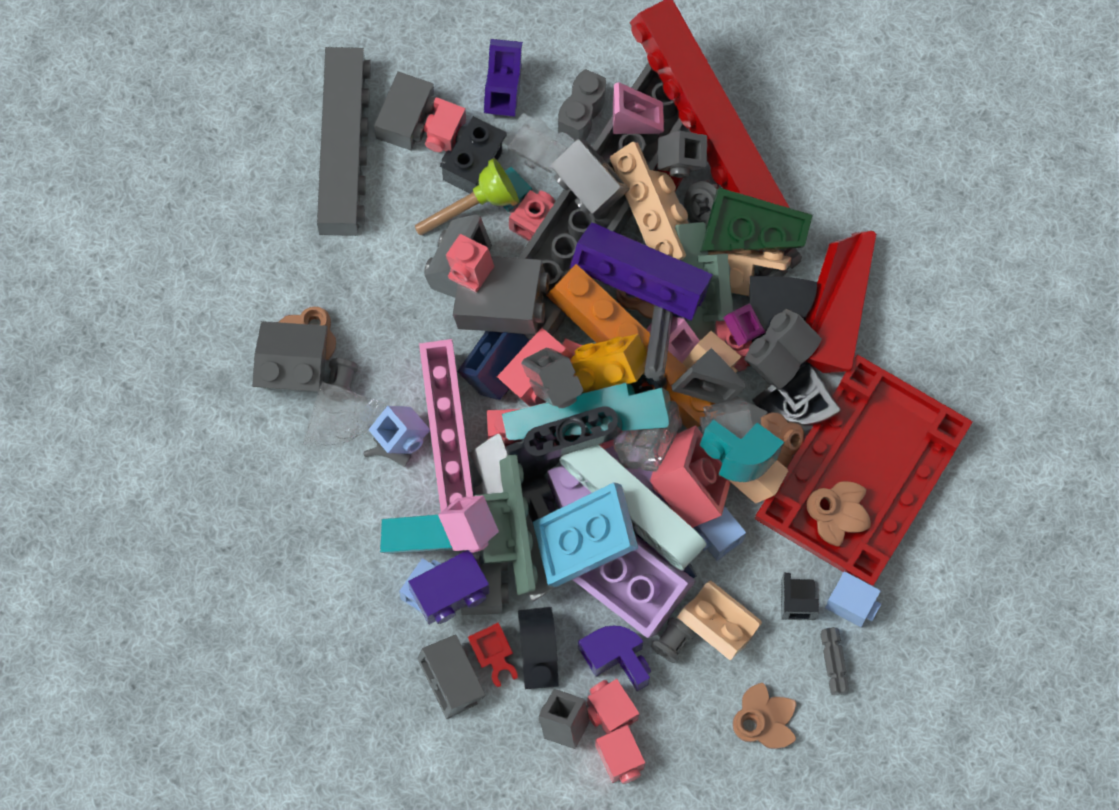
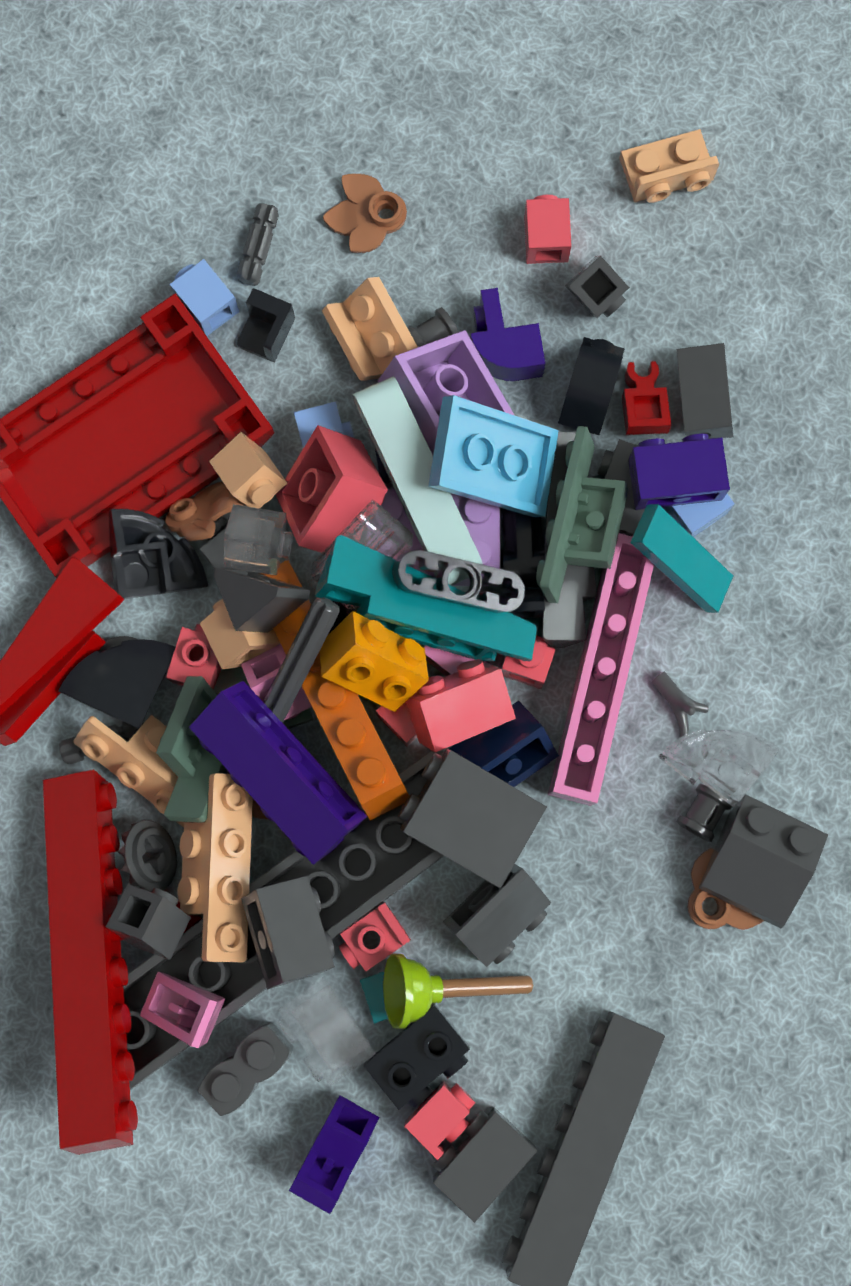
camera: 155 degrees left, 10 degrees up
(399, 430) = (659, 707): light blue brick -> none
(468, 523) = (634, 517): bright pink brick -> none
(469, 263) = (502, 859): coral brick -> none
(552, 377) = (458, 655): dark grey brick -> none
(610, 706) = (536, 284): coral brick -> none
(744, 324) = (177, 661): magenta tile -> none
(745, 457) = (255, 468): teal brick -> none
(753, 224) = (104, 790): dark green wing -> none
(782, 348) = (140, 616): dark grey brick -> none
(844, 511) = (167, 394): nougat plate -> none

